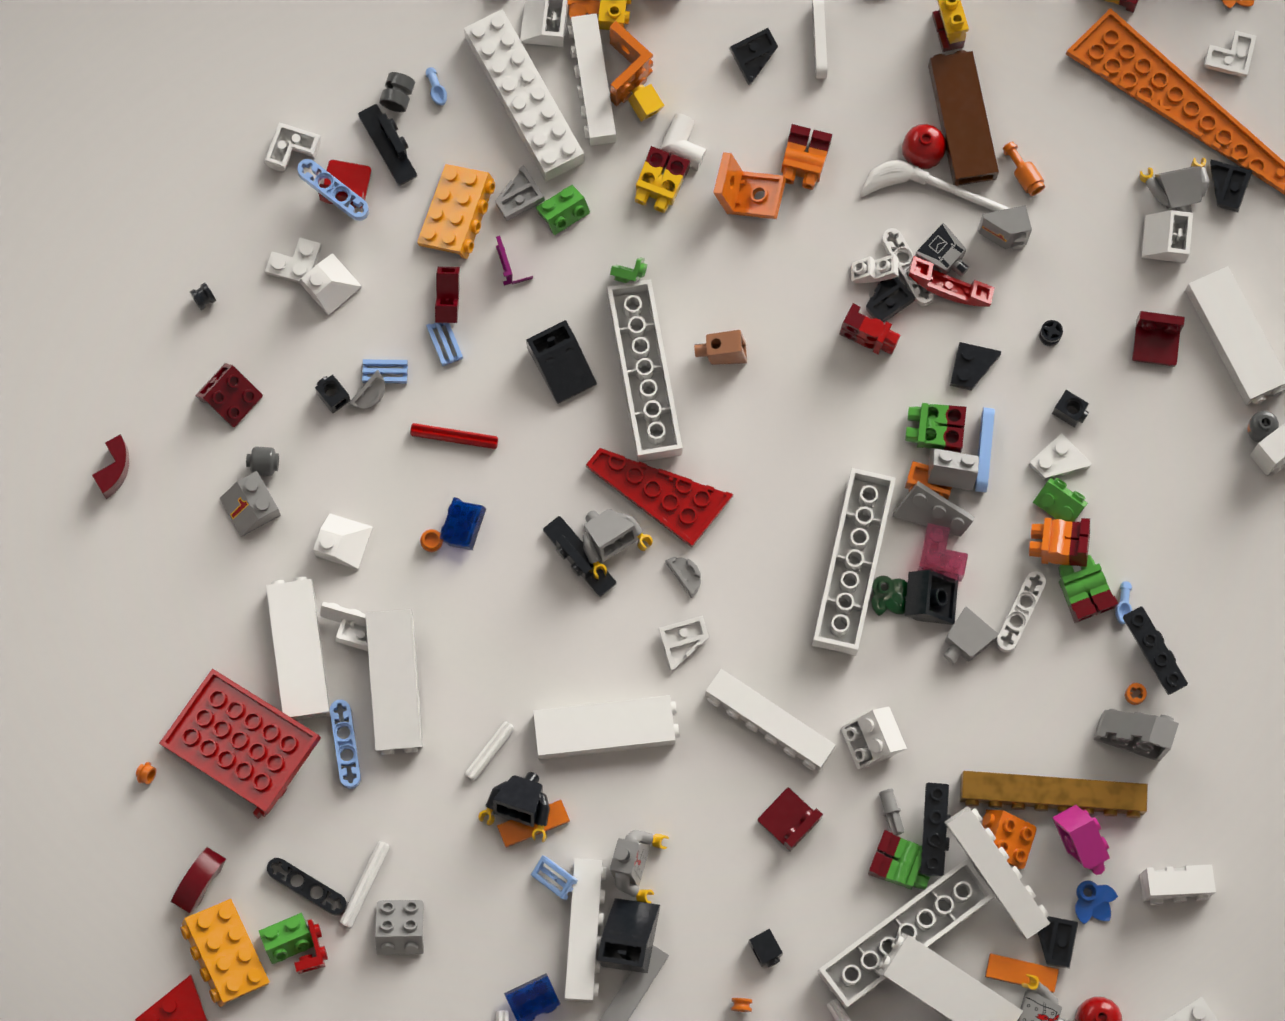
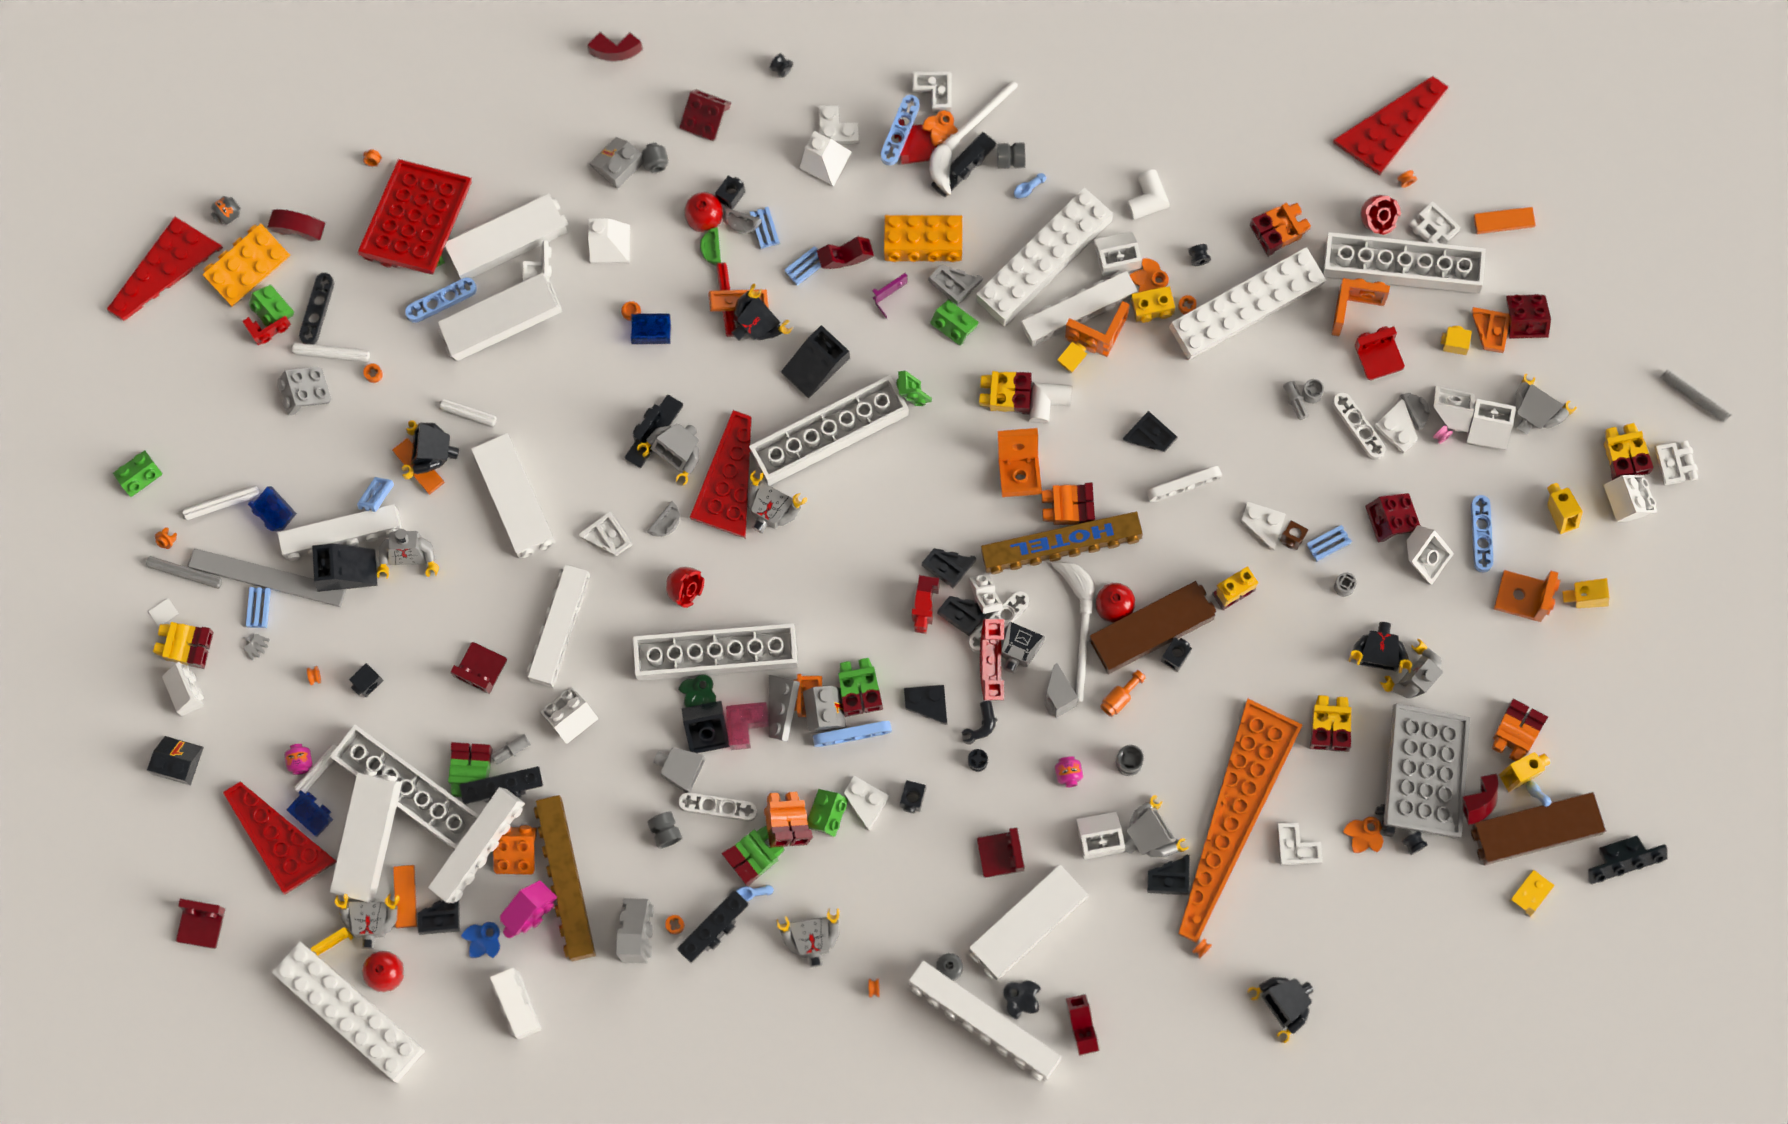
camera: 80 degrees right, 0 degrees up
(149, 958) = (225, 210): none -> dark grey head
(340, 153) = (939, 129): none -> orange plate
(343, 429) = (703, 211): none -> red cylinder
(370, 161) = (941, 156): none -> white piece
(387, 435) = (710, 246): none -> bright green tile
(410, 849) = (377, 378): none -> orange bush
(461, 422) = (726, 299): none -> orange tile
(493, 406) = (756, 318): none -> black torso
(707, 456) = (770, 505): none -> light grey torso
(723, 348) = (870, 489): nougat torso -> none
(767, 573) = (684, 585): none -> red cylinder
(832, 298) = (948, 565): none -> black wing
(843, 178) = (1062, 542): none -> pearl gold brick
(1000, 112) = (1176, 662): none -> black brick
(1015, 310) = (988, 724): none -> black piece
(1032, 672) = (664, 829): none -> dark grey wheel
(1090, 247) = (1069, 771): none -> dark pink head
(1098, 183) = (1129, 760): none -> dark grey wheel
(1191, 554) = (811, 936): none -> light grey torso
(1262, 509) = (874, 987): none -> orange bush

